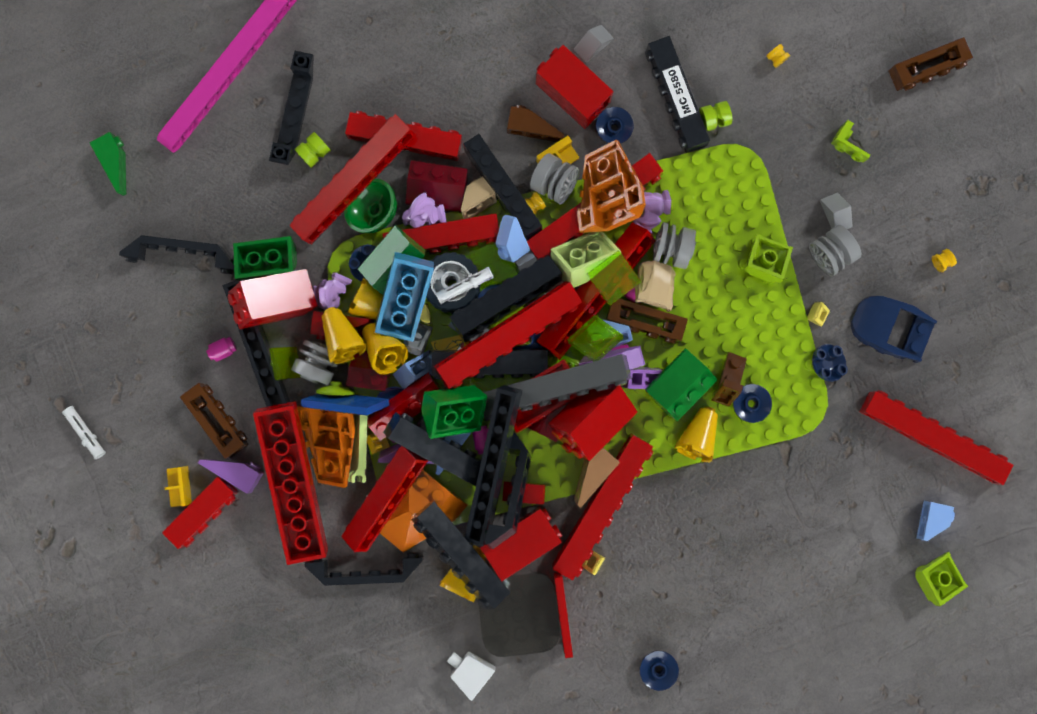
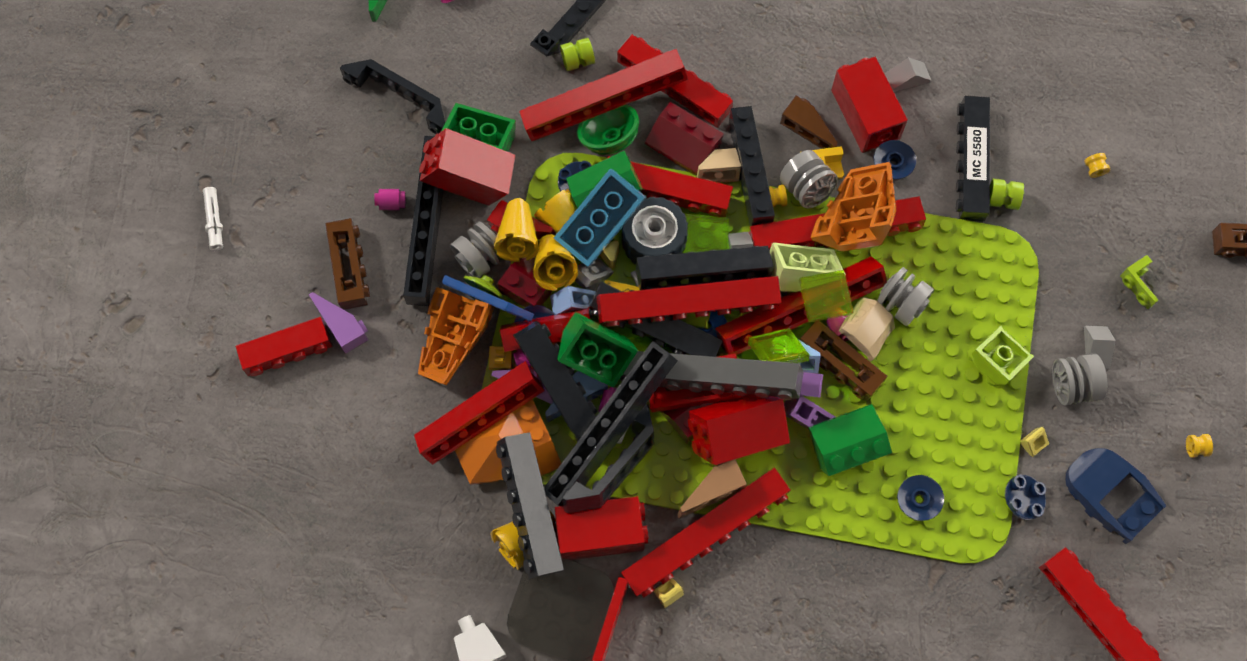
camera: 30 degrees right, 15 degrees down
(179, 486) = (276, 311): yellow panel -> none
(282, 361) = (443, 235): clear neon green piece -> none
(291, 482) = (391, 353): red brick -> none
(319, 569) = (470, 499): black slope -> none
(328, 291) = (529, 187): lavender animal -> none
(359, 451) = (479, 351): yellowish green tile -> none
(423, 212) = (663, 152): lavender animal -> none
(464, 285) = (667, 234): white pin -> none
(511, 240) = (736, 217): light blue slope -> none
(533, 493) = (636, 483): red slope -> none
(655, 206) = (900, 250): lavender animal -> none
(699, 436) = (845, 505): yellow cone -> none
(729, 384) = (905, 462): reddish brown bracket -> none

